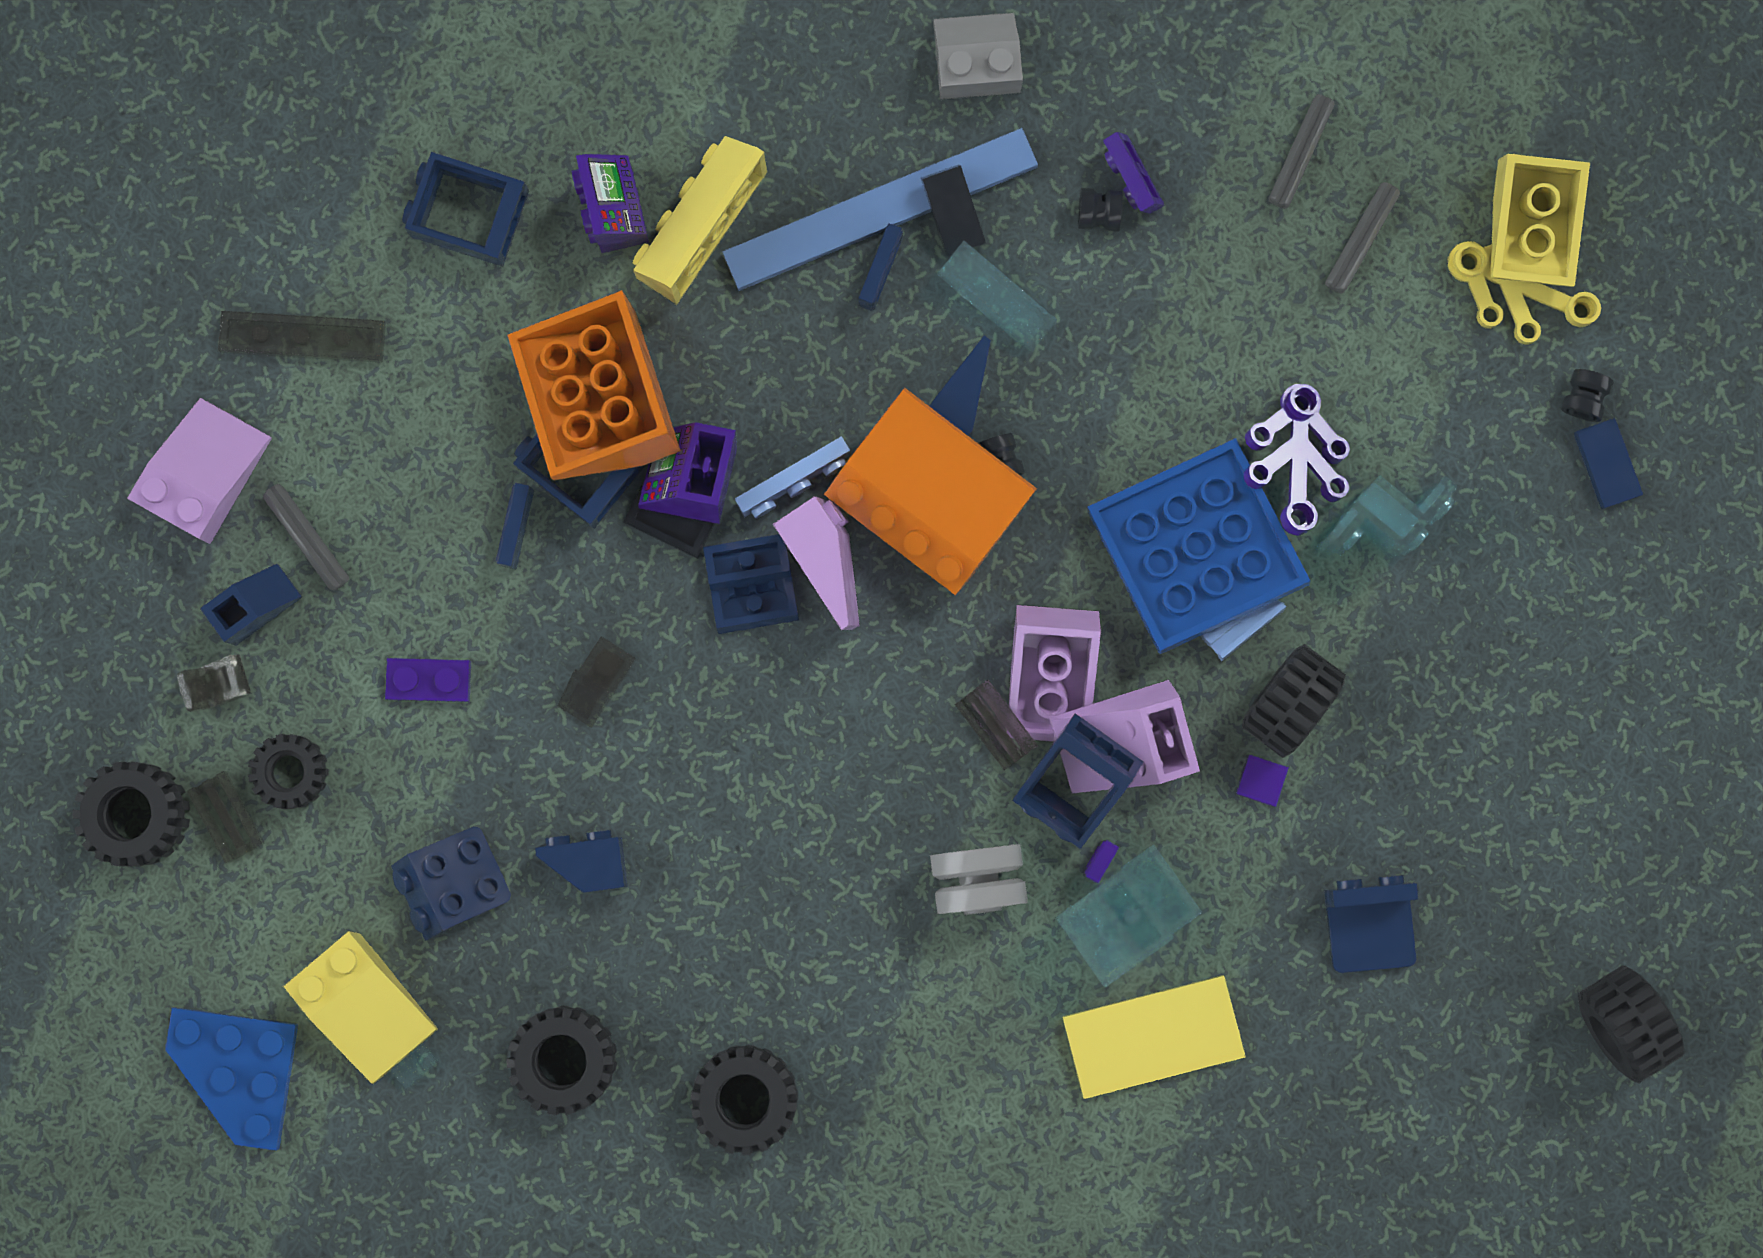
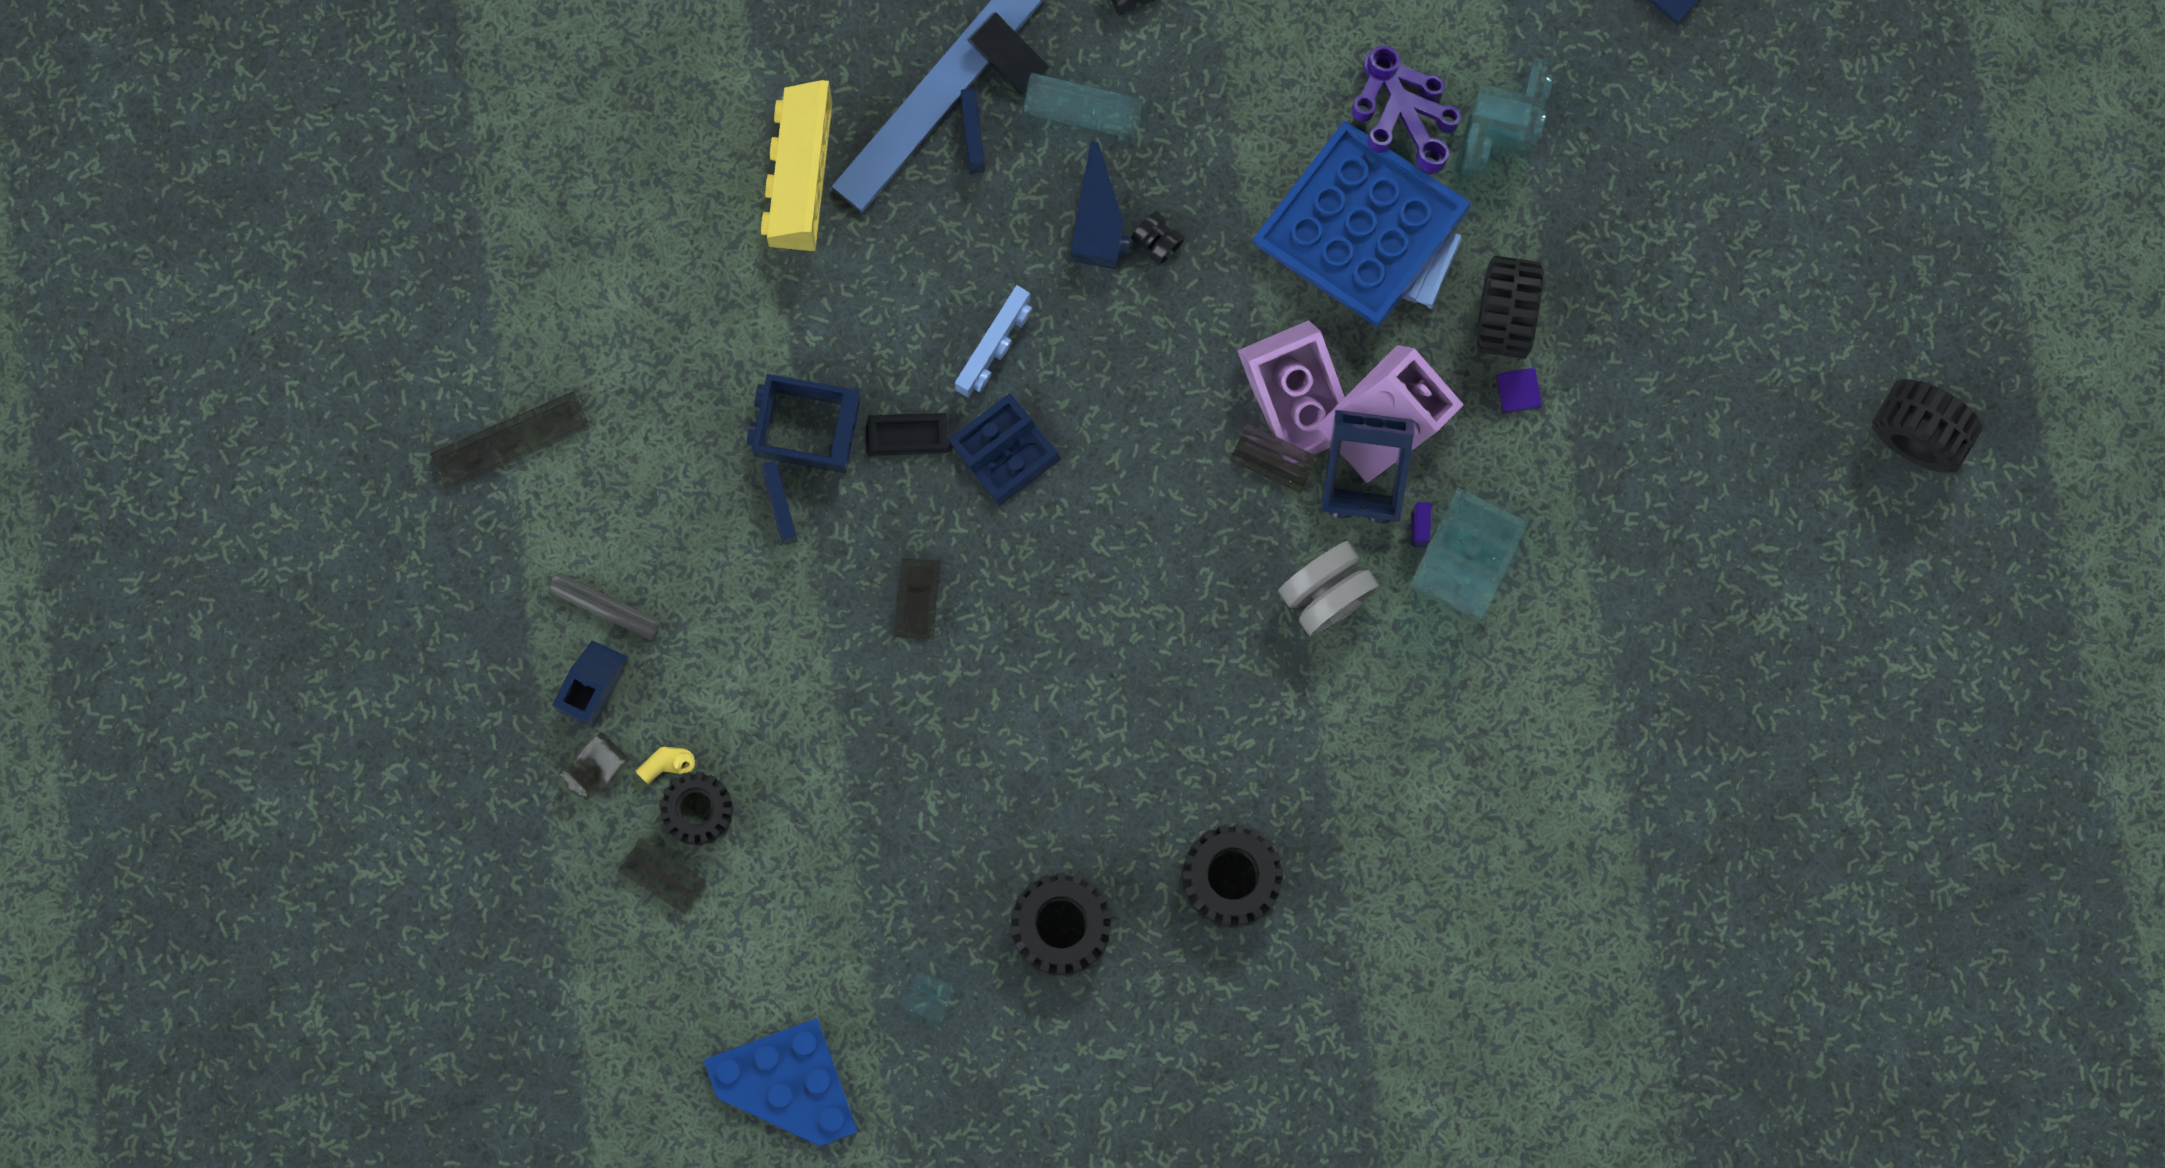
camera: 30 degrees left, 5 degrees down
(97, 809) = (557, 888): black tyre -> none
(200, 470) = (484, 596): lavender slope -> none
(285, 710) = (666, 760): none -> light yellow arm
(361, 1006) = (866, 971): light yellow slope -> none
(428, 680) = (773, 671): dark purple plate -> none
(450, 882) = (883, 829): dark blue bracket -> none
(505, 221) = (592, 228): dark blue window -> none
(587, 864) = (993, 752): dark blue slope -> none
(593, 390) = (788, 352): orange slope -> none
(612, 199) = (718, 192): dark purple slope -> none
(694, 479) = (903, 380): dark purple slope -> none
(823, 551) = (1046, 382): lavender slope -> none
(930, 491) = (1116, 291): orange slope -> none
(1153, 1036) = (1543, 648): light yellow tile -> none
(1371, 924) = (1672, 459): dark blue bracket -> none

